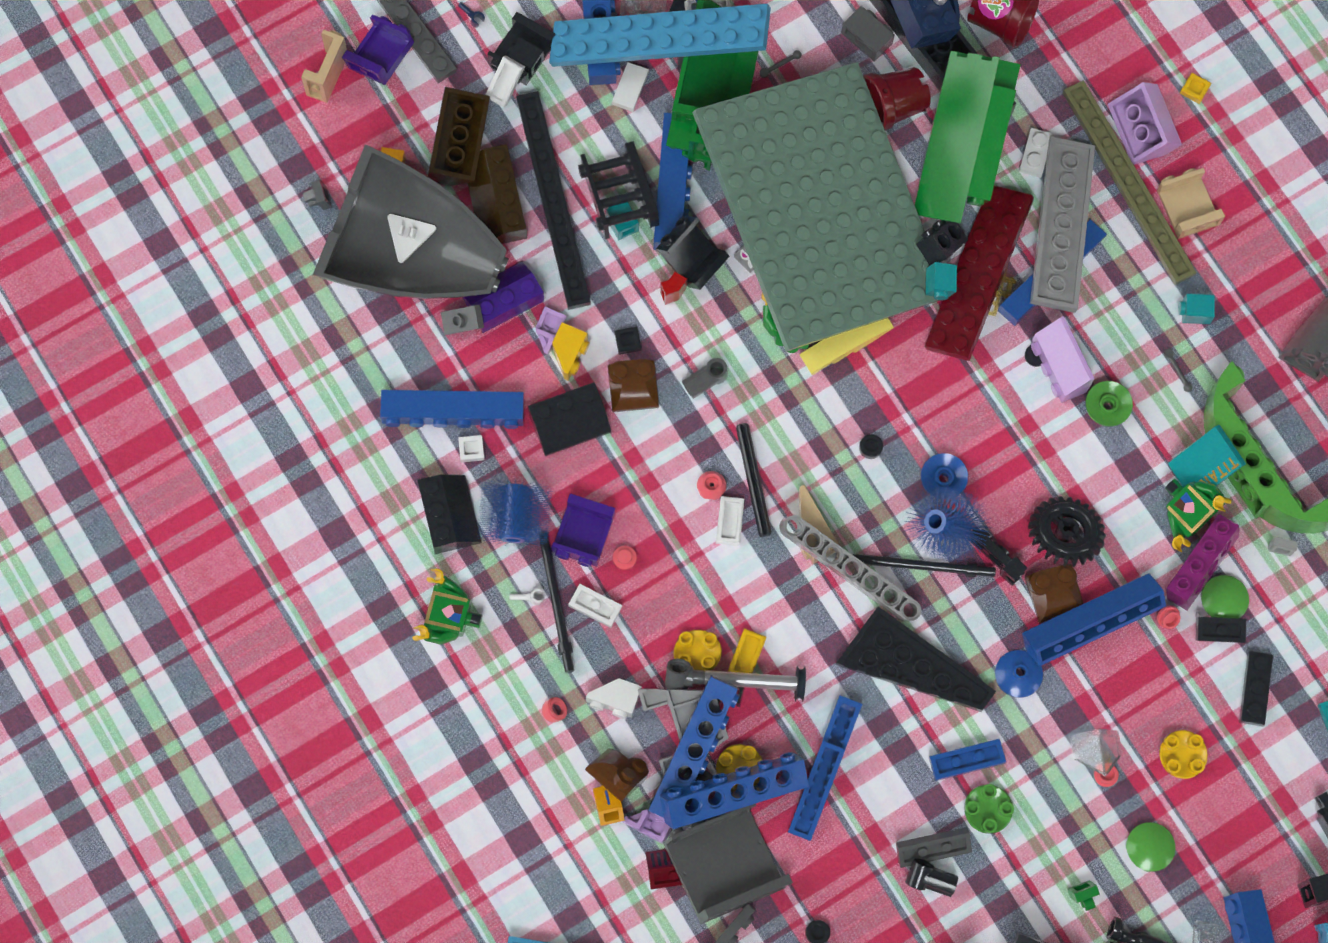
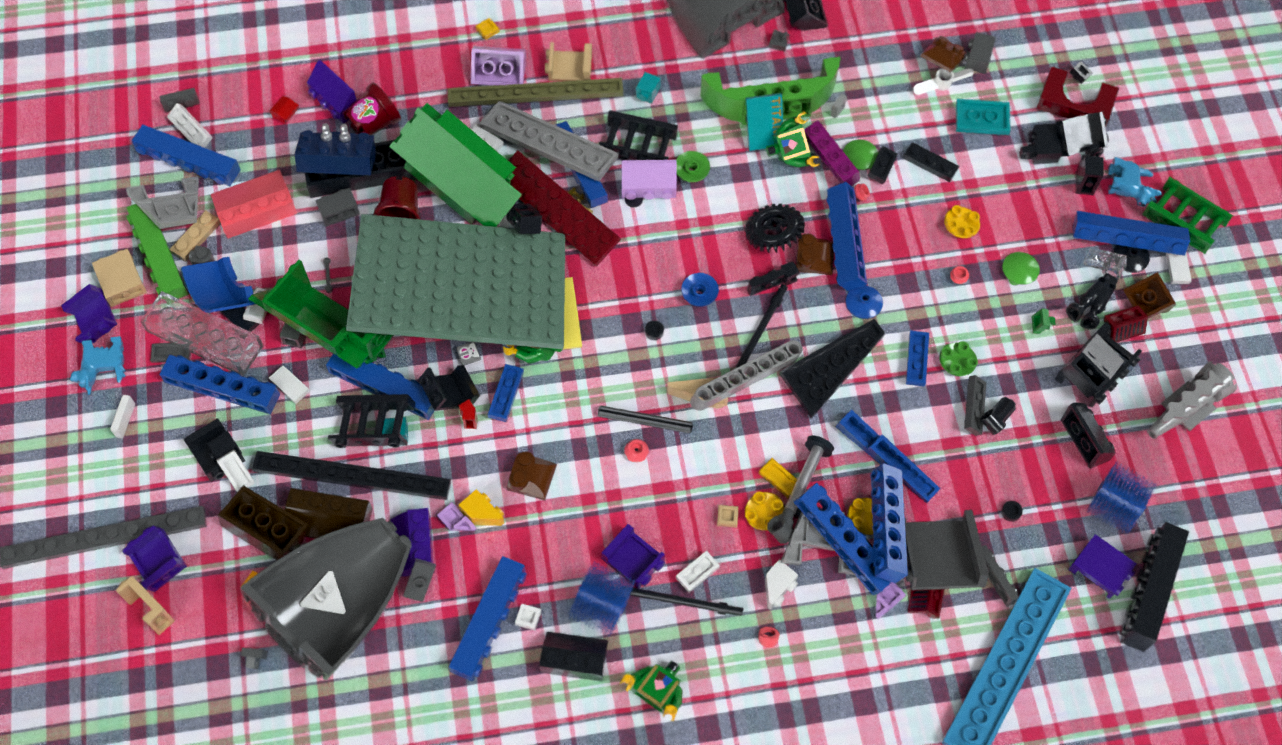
camera: 65 degrees left, 10 degrees down
(471, 14) = (165, 477): dark blue hand -> none
(528, 597) = (669, 619): white hand -> none
(569, 419) = (538, 532): black slope -> none
(608, 806) = (862, 621): light orange brick -> none
(618, 773) = (842, 603): reddish brown slope -> none
(624, 557) = (667, 535): coral plate -> none
(627, 340) = (493, 466): black tile -> none
(660, 35) = (267, 335): dark azure plate -> none
(675, 614) = (727, 516): none -> tan tile
(704, 379) = (551, 420): dark grey piece -> none
(718, 316) = (505, 393): none -> blue plate
(730, 521) = (669, 448): white tile -> none
(941, 280) = (554, 229): teal brick -> none
(948, 524) = (746, 304): blue piece -> none
(1097, 749) = (940, 274): clear slope -> none
(1135, 313) = (642, 125): none -> black fence
(1168, 354) = (670, 119): dark grey hinge -> none

